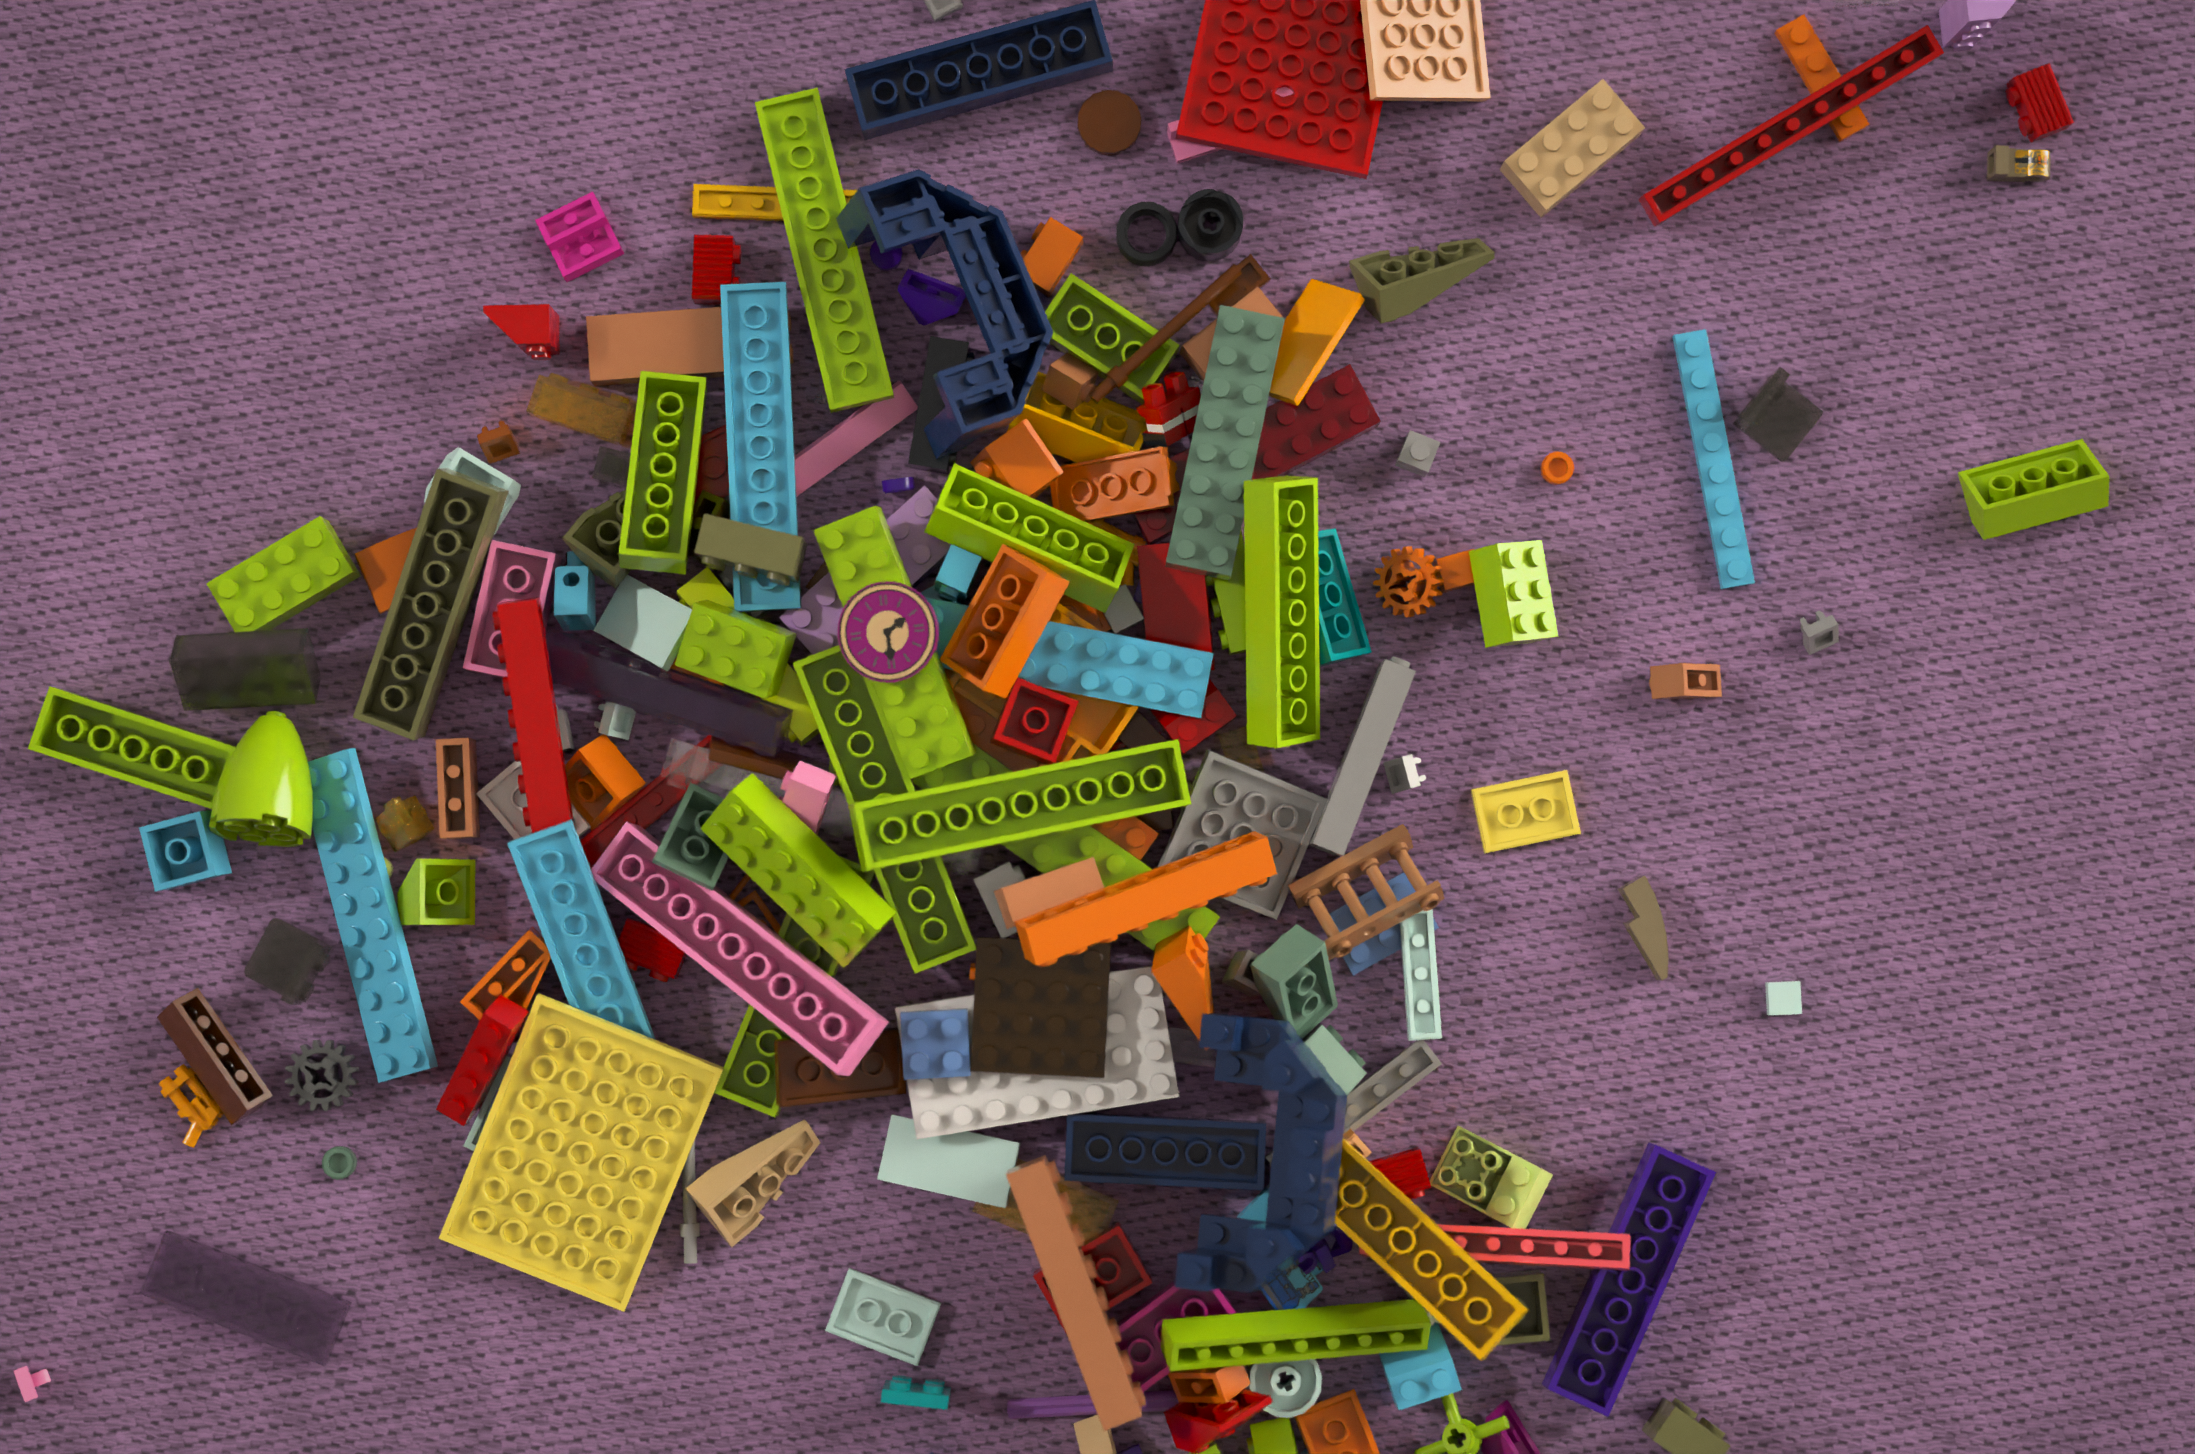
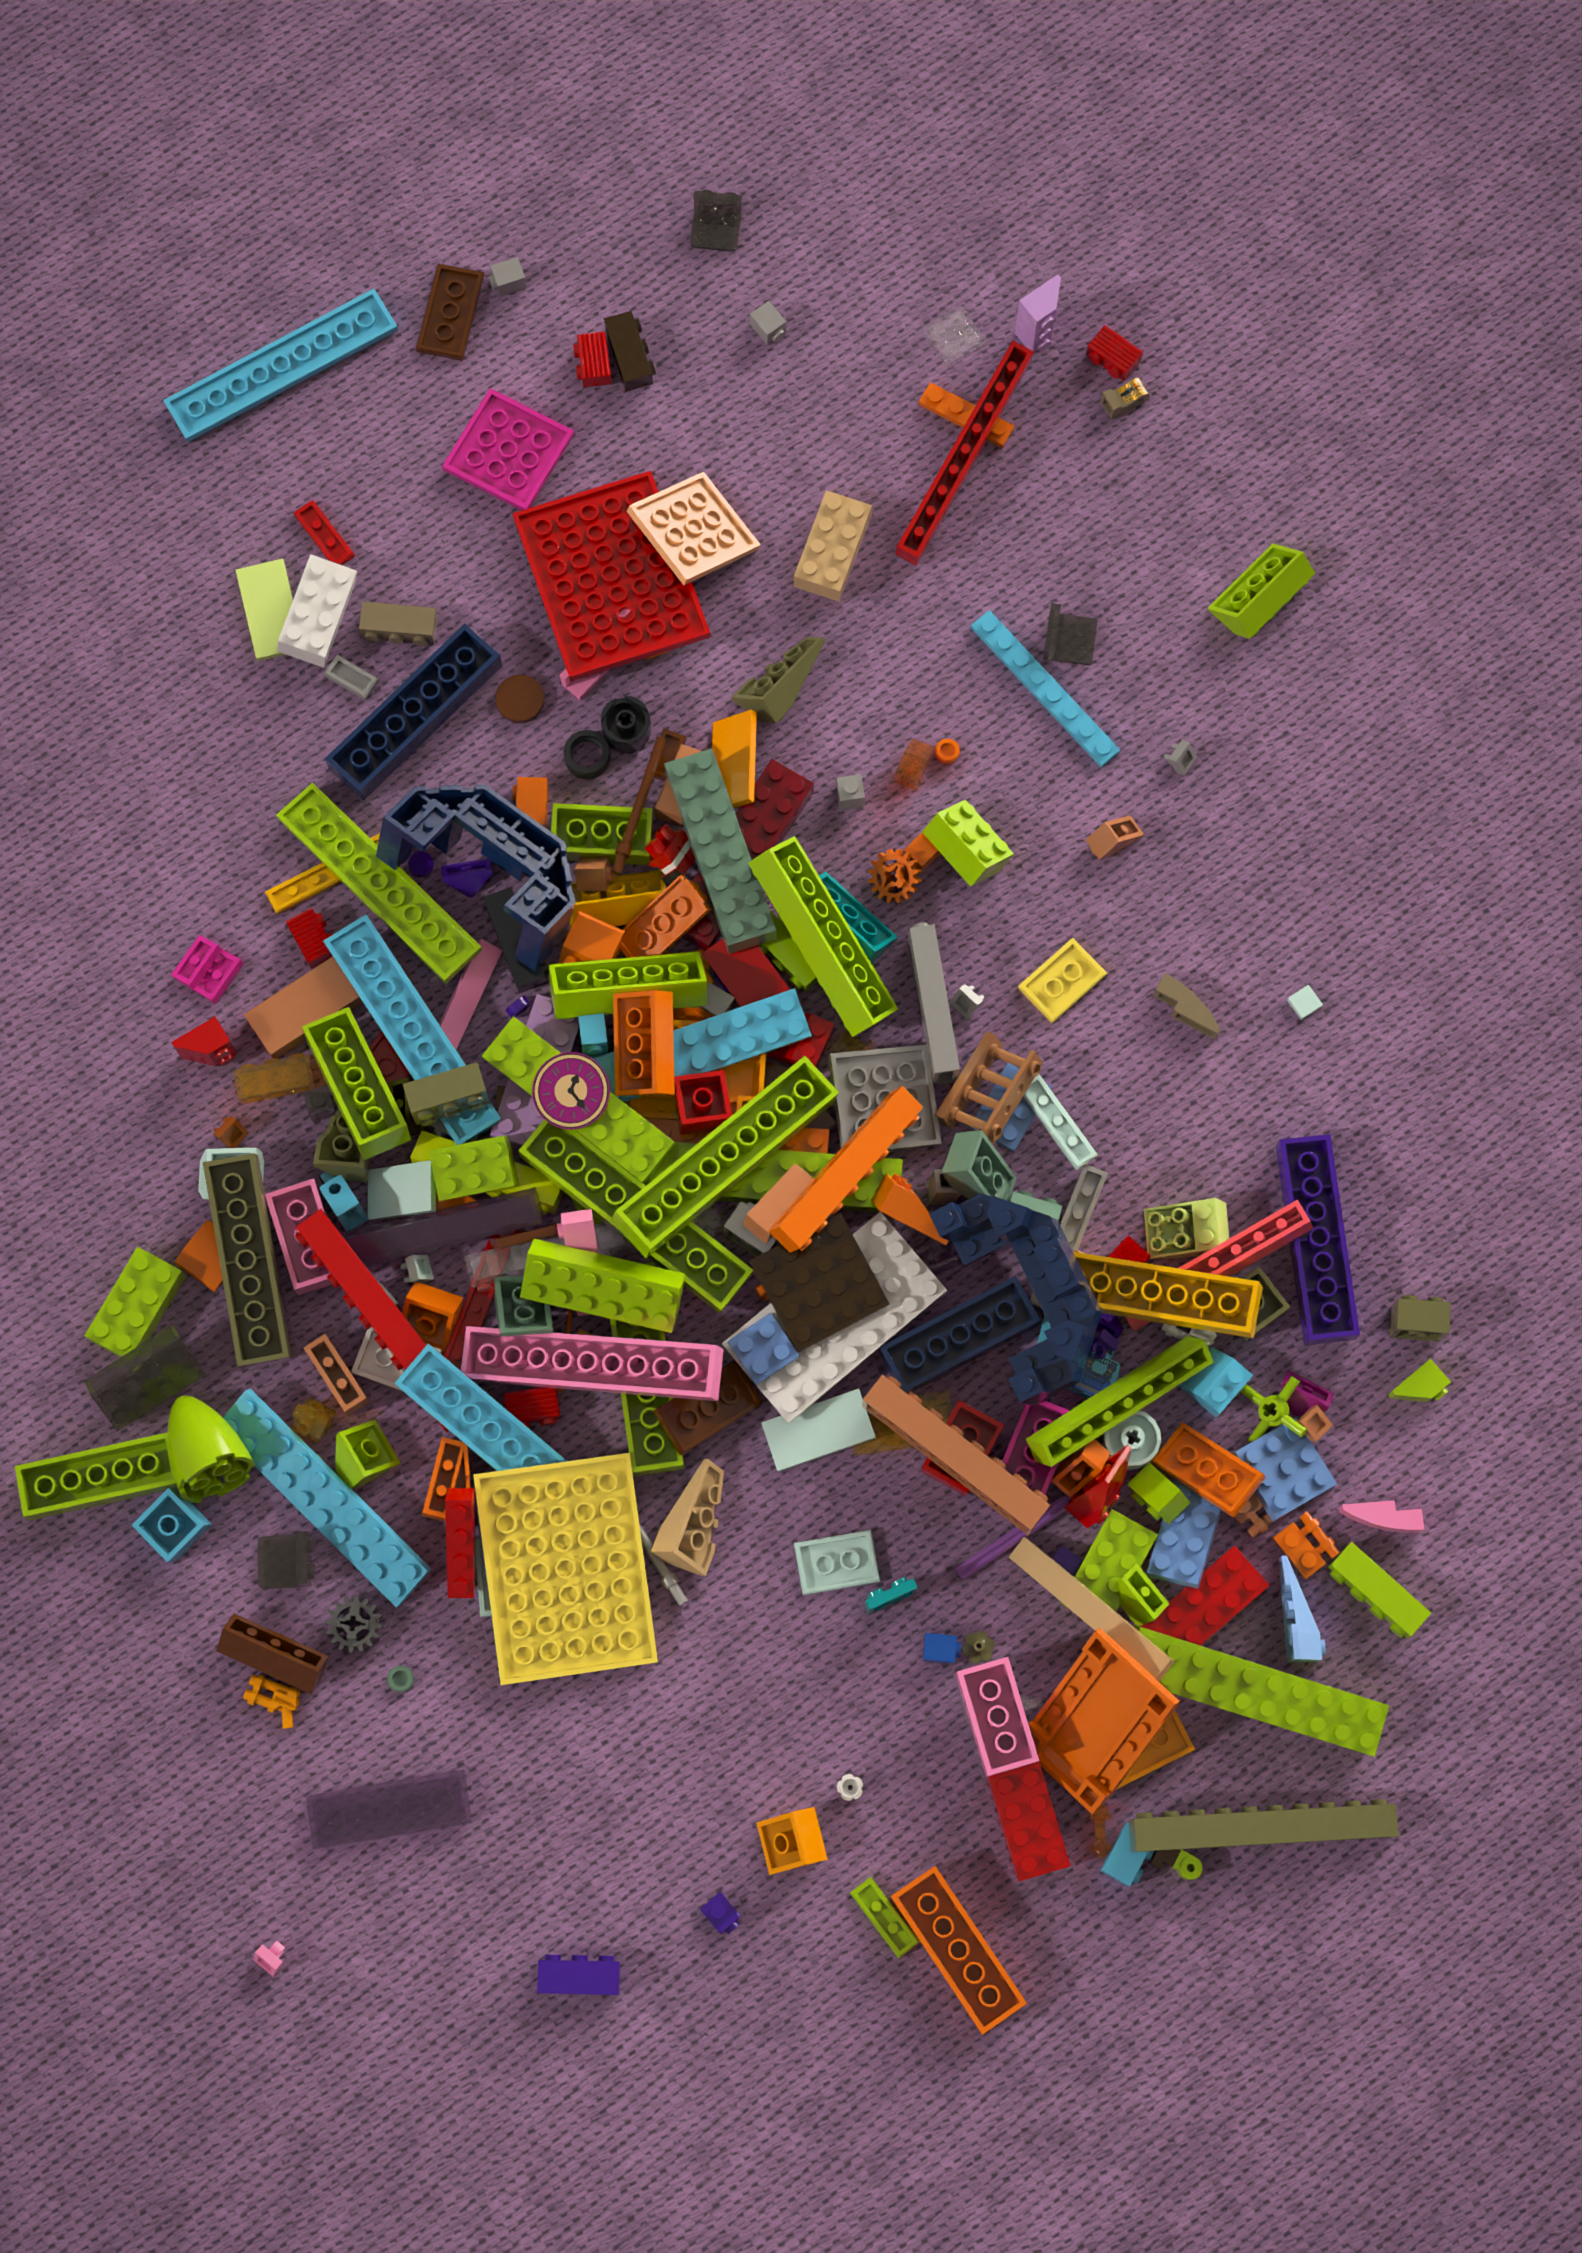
camera: 25 degrees left, 10 degrees down
(1510, 462) = (914, 764): none -> clear orange slope

